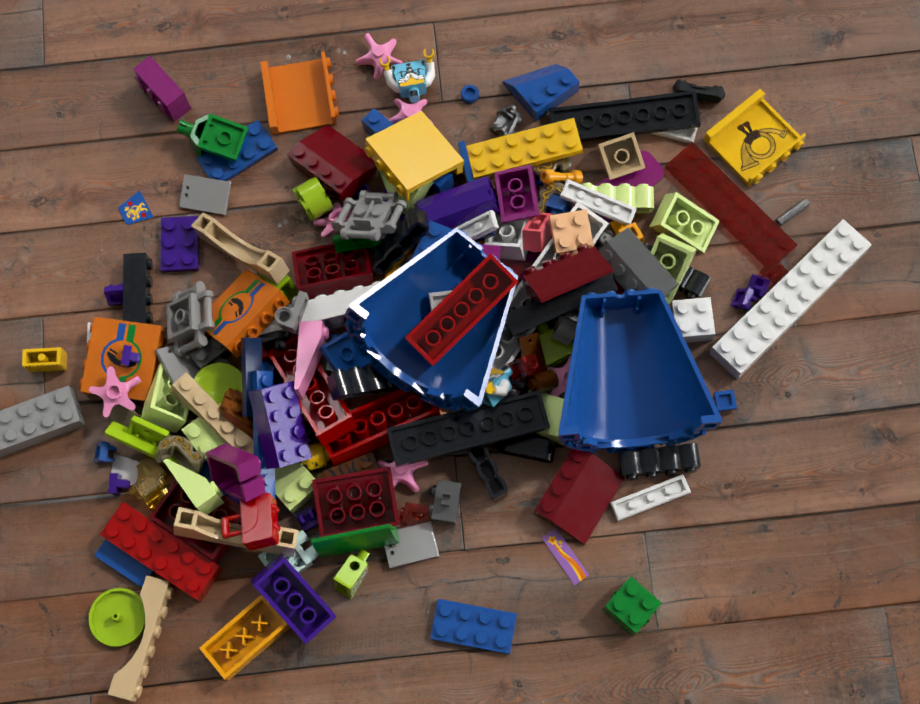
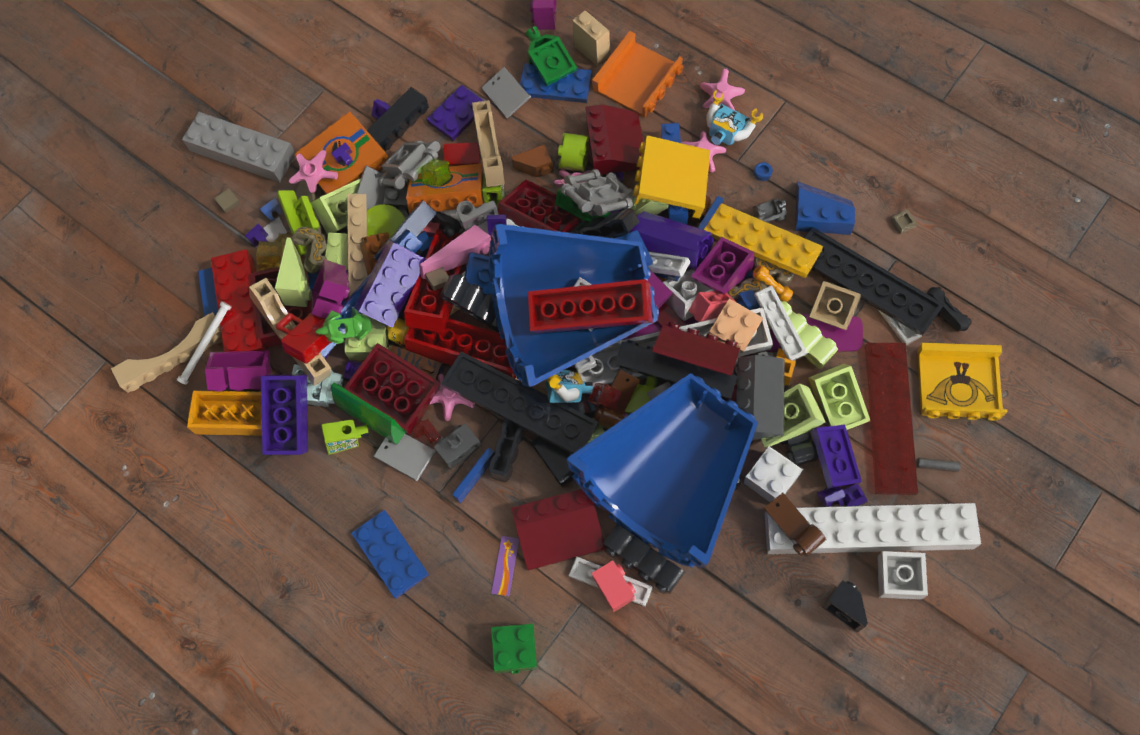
camera: 45 degrees right, 5 degrees down
(44, 359) = (294, 115): yellow brick -> none
(56, 478) = (227, 200): none -> dark tan tile
(117, 617) = (170, 324): lime piece -> none
(135, 209) = (452, 67): blue sticker -> none
(173, 648) = (204, 342): none -> white bar
(219, 274) = (462, 153): none -> red slope
(220, 599) = (237, 370): none -> magenta piece
(226, 307) = (435, 172): none -> clear neon green brick
(236, 93) = (591, 38): none -> tan brick
(284, 481) = (356, 326): none -> bright green piece
(286, 232) = (534, 161): none -> dark orange slope
(315, 388) = (437, 278): none -> dark tan tile
(319, 307) = (493, 220): none -> dark purple tile
(480, 512) = (473, 475): none -> blue tile
(608, 49) = (904, 221): none -> dark tan tile
(659, 497) = (613, 585): none -> coral brick
(722, 267) = (836, 456): none -> dark purple plate
(725, 400) = (740, 560): blue plate -> none
(743, 341) = (802, 534): none -> reddish brown door
(774, 271) = (877, 494): clear red bracket -> none
(825, 366) = (847, 605): none -> black slope
(840, 312) = (902, 575): none -> white brick

